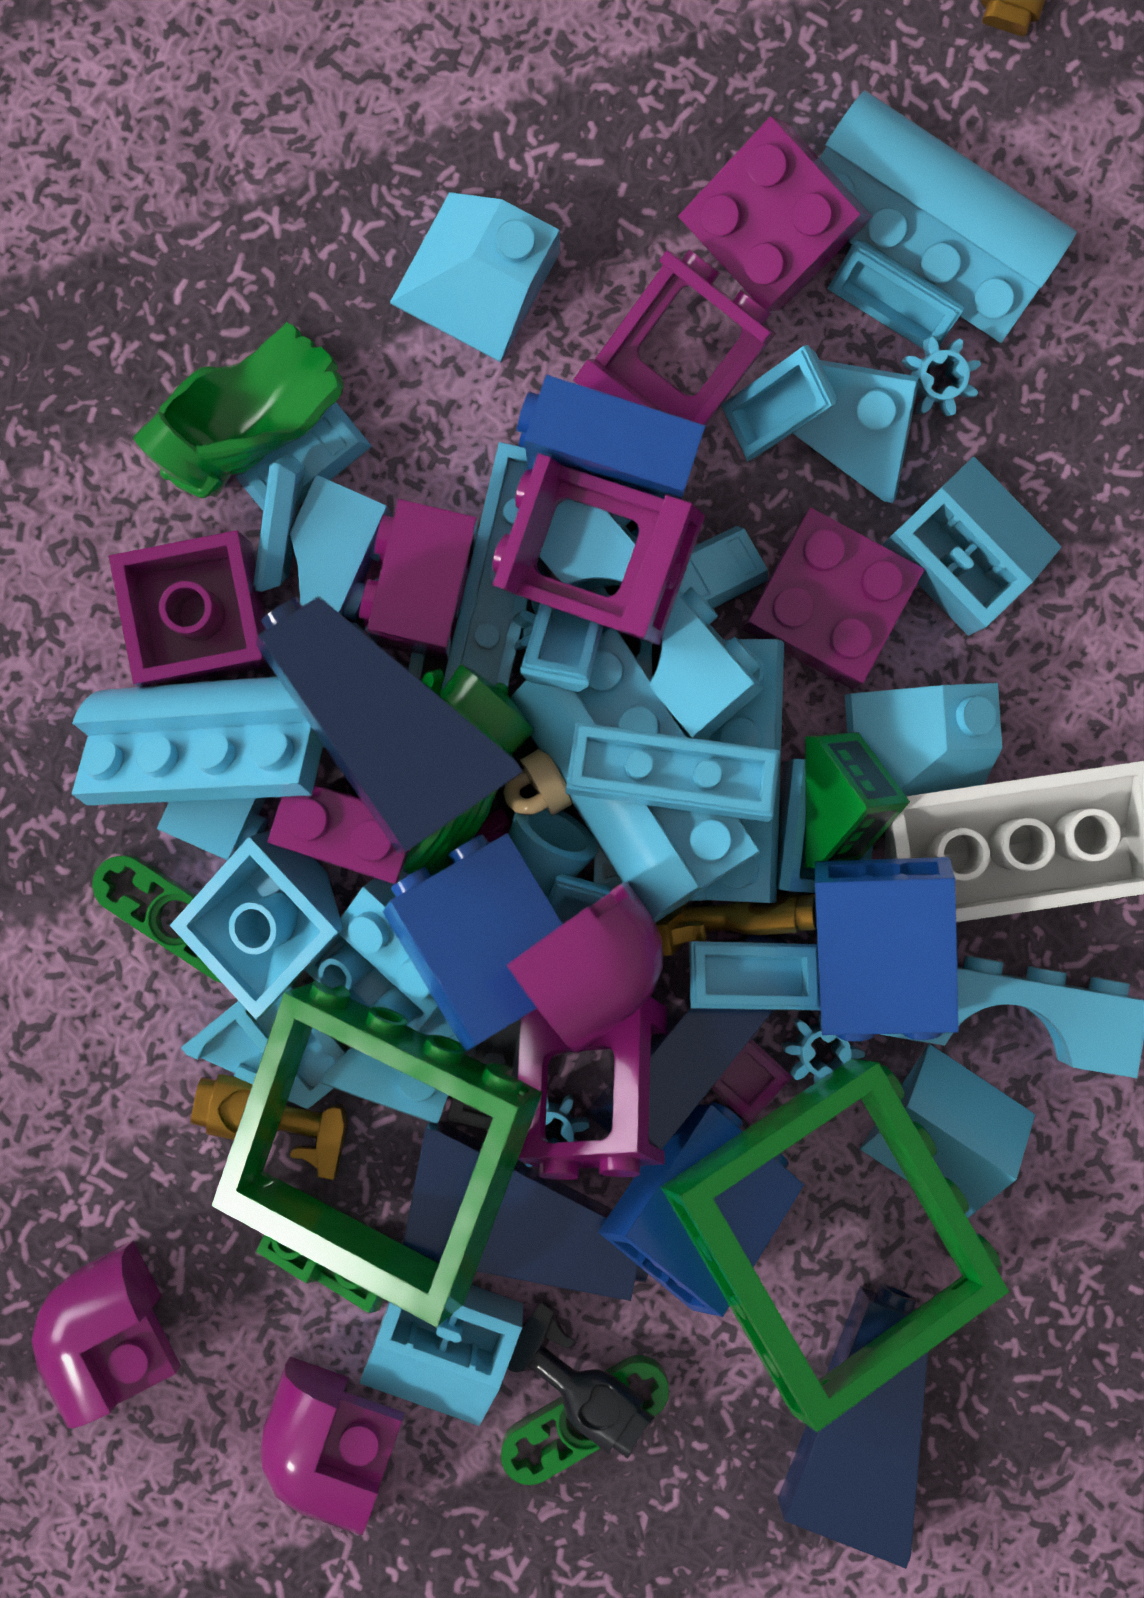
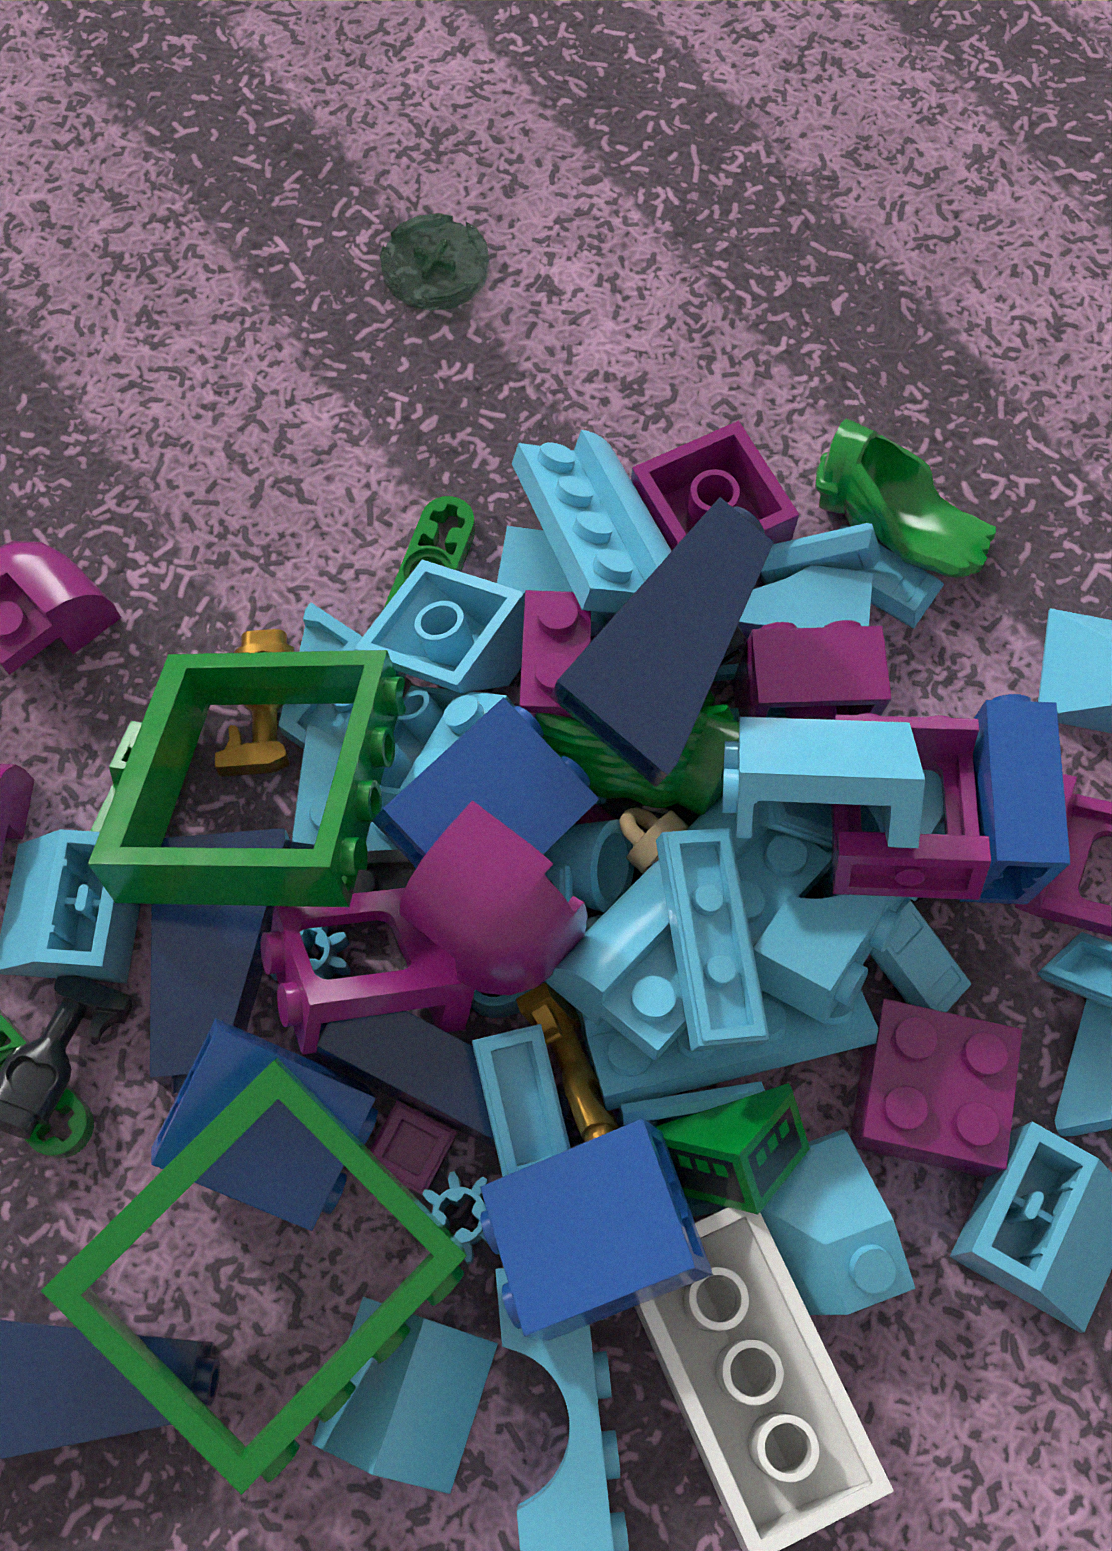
camera: 75 degrees right, 20 degrees down
(555, 621) = (826, 765): none -> medium azure panel

